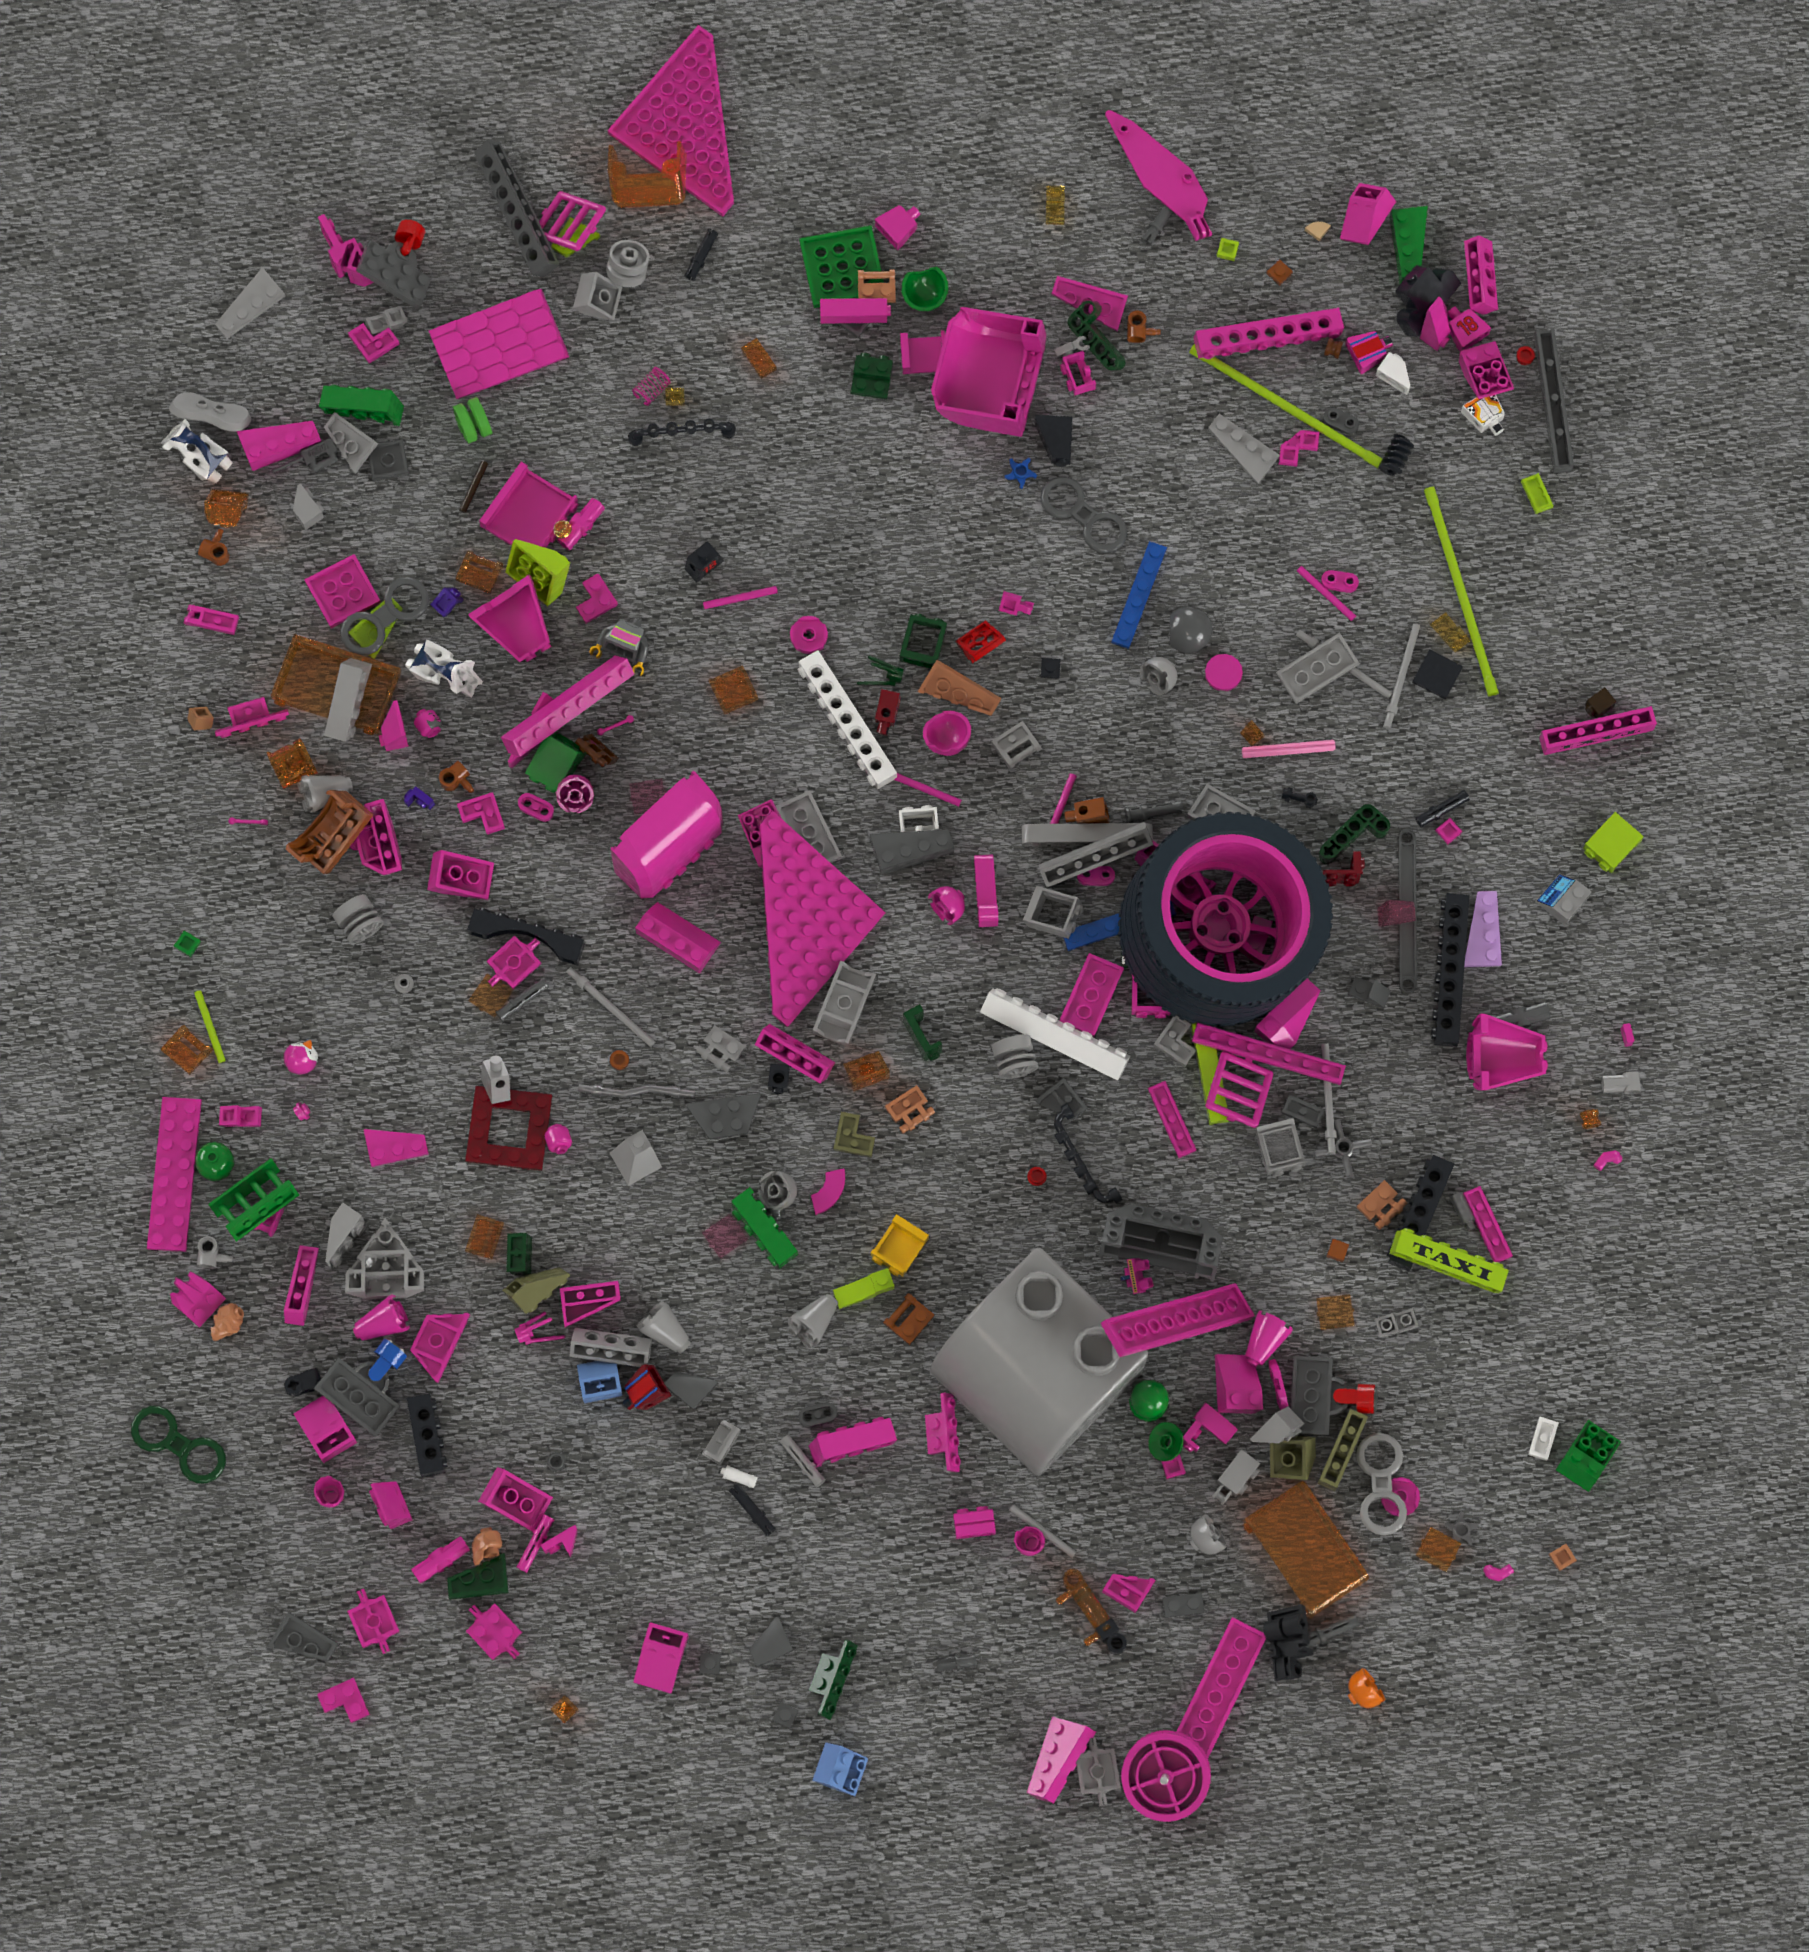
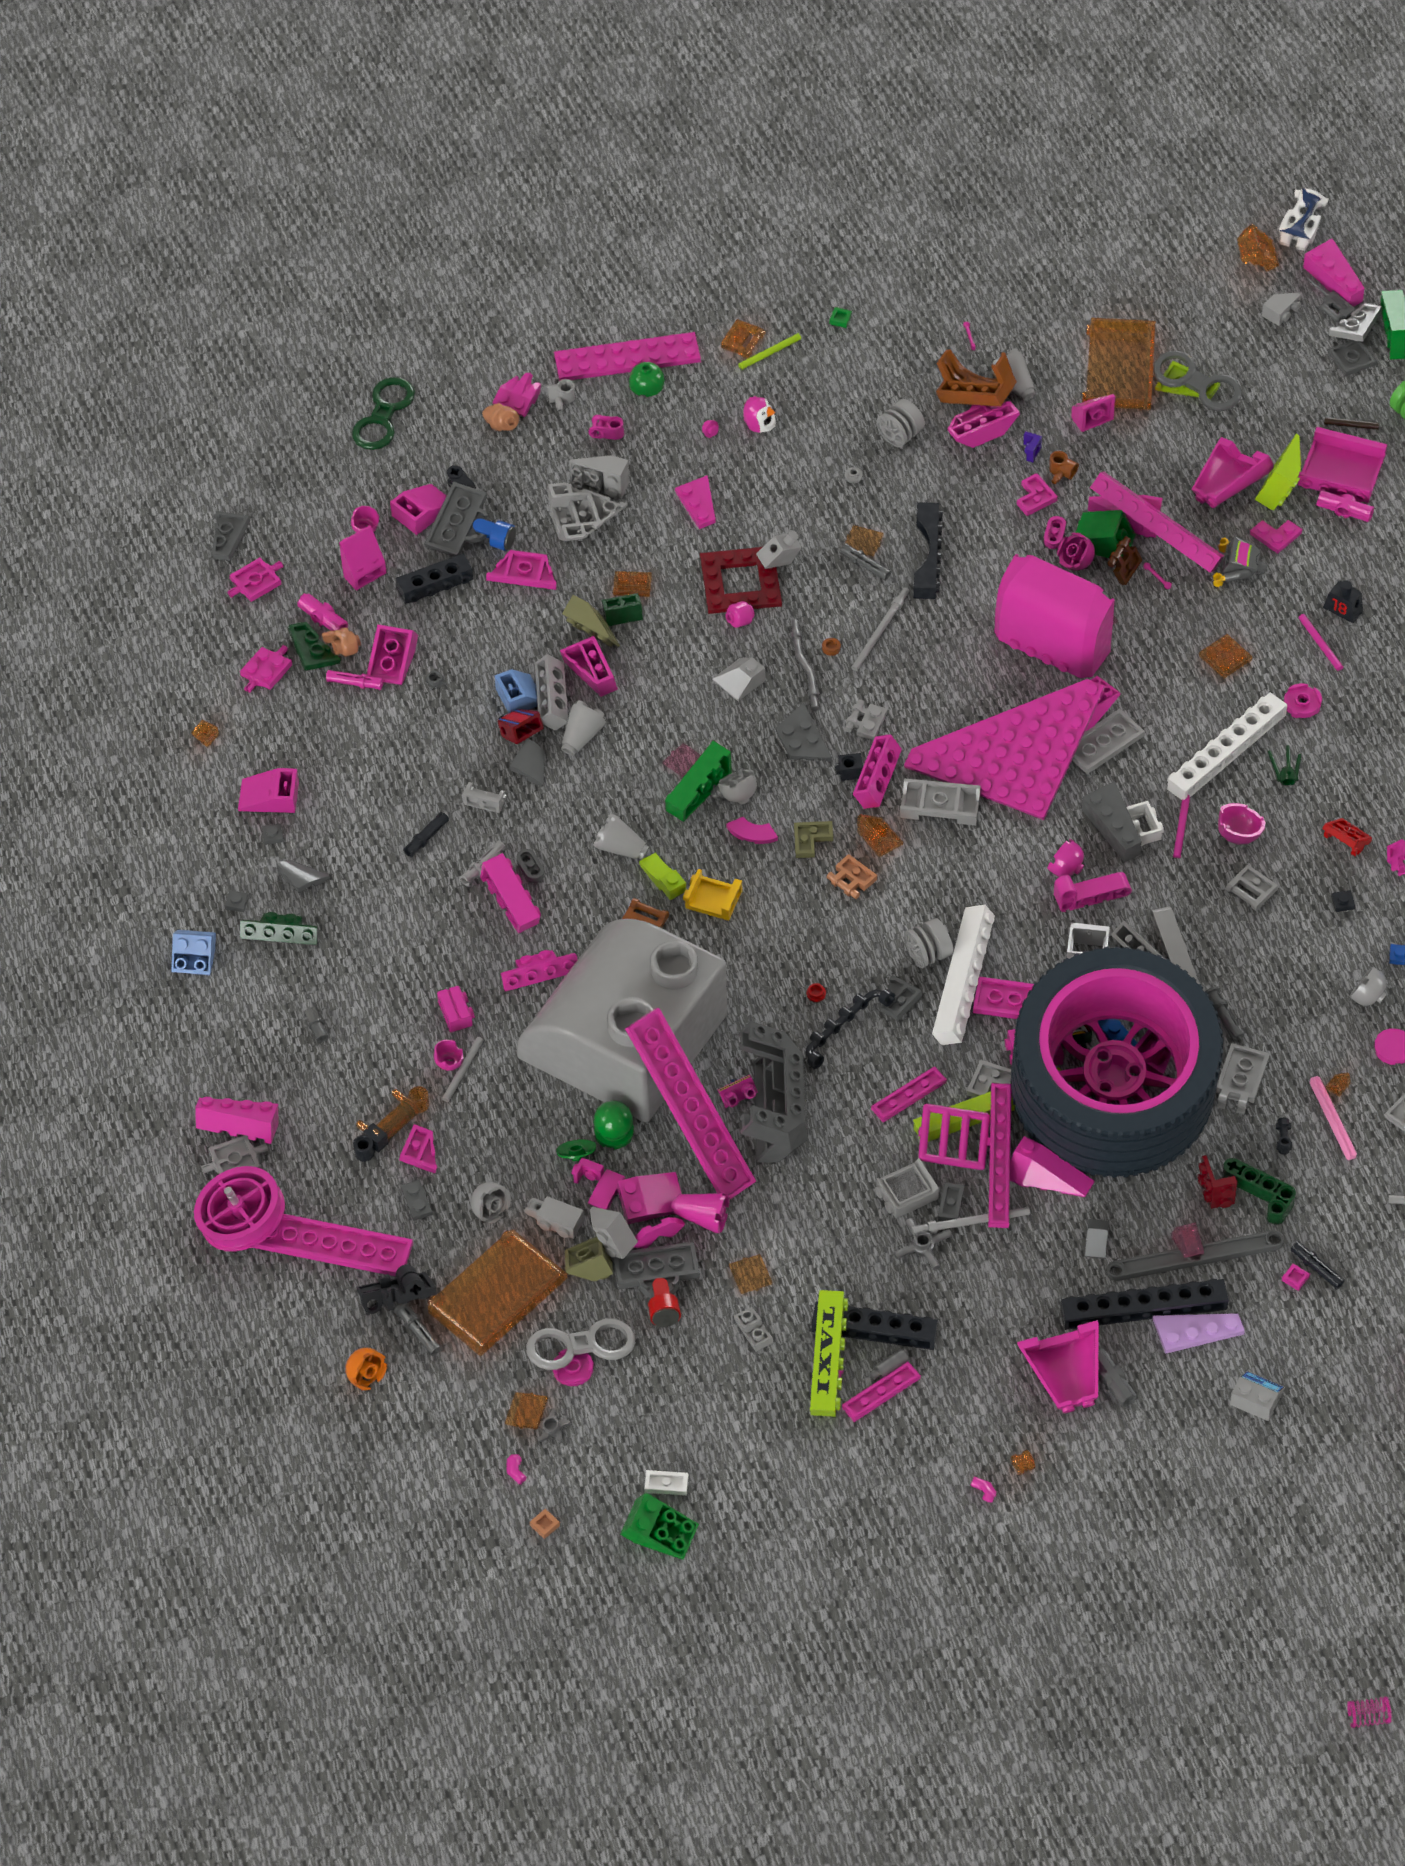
camera: 80 degrees right, 20 degrees down
(200, 718) = (1054, 280): medium nougat slope -> none
(210, 548) = (1214, 254): dark orange piece -> none
(212, 619) = (1149, 268): dark pink plate -> none
(222, 415) = (1344, 220): light grey plate -> none
(240, 1116) = (693, 389): dark pink slope -> none
(250, 714) = (1070, 311): dark pink bracket -> none
(260, 1211) = (616, 407): green fence -> none
(291, 763) = (1033, 345): clear orange brick -> none
(301, 1286) = (541, 461): dark pink slope -> none
(342, 590) = (1213, 349): dark pink plate -> none
(347, 699) = (1107, 368): light grey wedge -> none
(347, 1695) = (184, 577): dark pink plate -> none
(382, 1320) = (534, 525): dark pink cone -> none
(427, 723) = (1107, 435): dark pink head -> none
(447, 600) = (1232, 424): dark purple bracket -> none
(454, 671) = (1162, 429): white hips -> none
(460, 875) = (969, 490): dark pink slope -> none
(476, 576) = (1263, 441): clear orange plate -> none
(513, 962) = (899, 547): dark pink plate -> none
(524, 1331) = (550, 631): dark pink plant -> none
(562, 529) = (1331, 487): clear yellow plate -> none
(566, 1538) = (360, 698): dark pink slope -> none
(677, 937) = (964, 661): dark pink slope -> none
(738, 1476) = (455, 818): white piece -> none
(888, 702) = (1247, 772): dark red torso -> none
(911, 1019) = (932, 855): dark green panel -> none
(917, 658) = (1330, 803): dark green window -> none
(952, 686) = (1292, 821): nougat wing -> none
(1063, 799) = (1210, 939): dark pink bar -> none
(1094, 809) = (1201, 950): dark orange torso -> none
(1173, 1467) = (553, 1164): dark pink tile -> none
(1337, 1250) = (814, 1261): dark orange piece -> none
(1342, 1450) = (605, 1300): olive brick -> none
(1377, 1200) = (877, 1287): nougat plate -> none
(1612, 842) = (1335, 1425): lime panel -> none
(1624, 1083) = (1072, 1488): light grey piece -> none
(1627, 1034) = (1126, 1479): dark pink tile -> none

